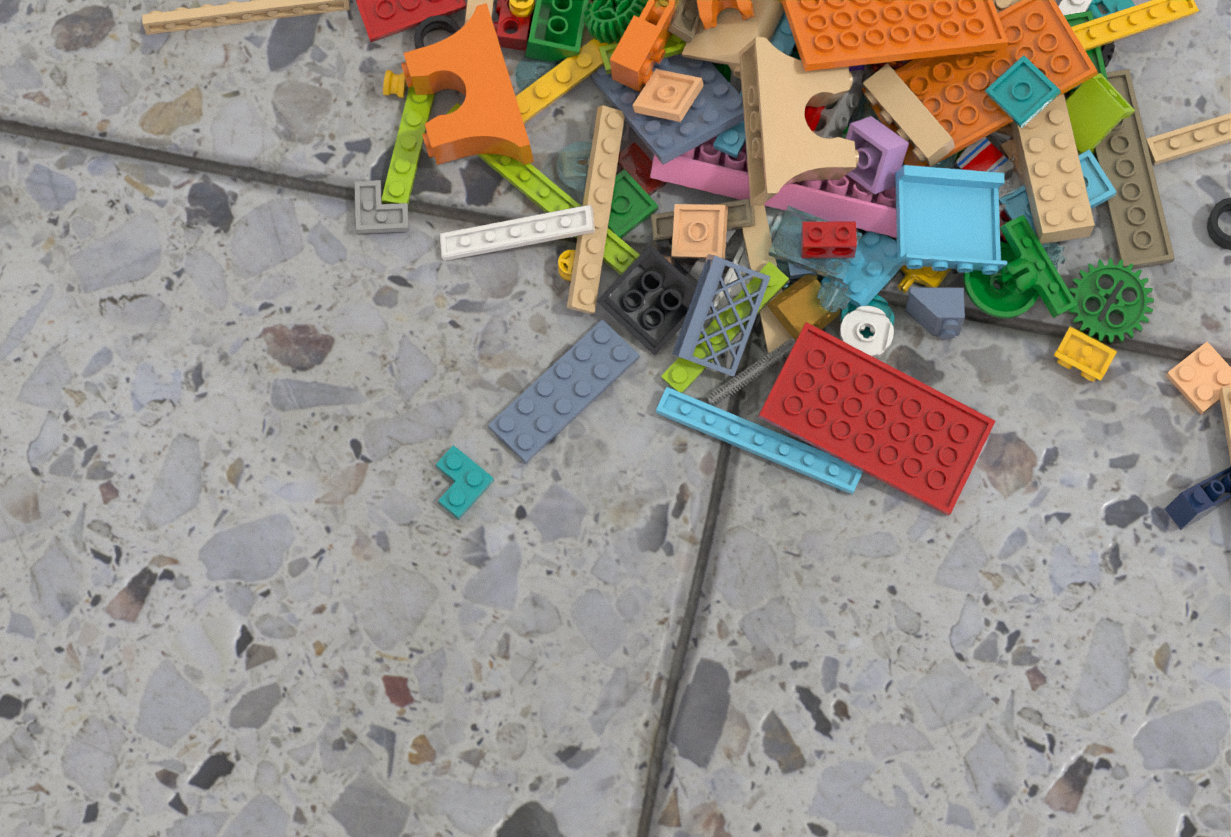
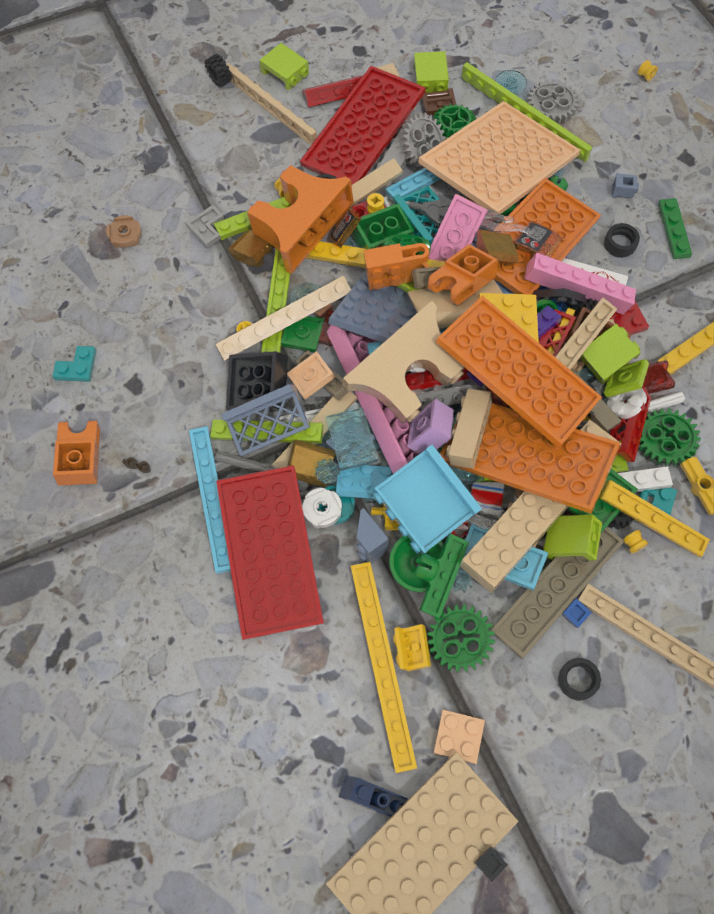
camera: 55 degrees right, 5 degrees down
(142, 35) = (218, 70): none -> black tyre
(308, 324) = (127, 239): none -> medium nougat plate
(452, 183) = (250, 249): none -> pearl gold slope
(517, 232) = (241, 292): white tile -> none
(523, 56) = (345, 227): none -> slope
(563, 391) = (168, 379): sand blue plate -> none
(587, 544) = (77, 455): none -> orange brick
(660, 490) = (132, 463): none -> dark brown piece
(668, 95) = (373, 298): light nougat plate -> none
(828, 239) = (354, 440): red brick -> none
(1022, 91) = (538, 477): teal plate -> none
(1079, 396) = (383, 669): none -> yellow plate
(1137, 59) = (635, 541): none -> yellow wheel
(1167, 173) = (576, 613): none -> blue plate

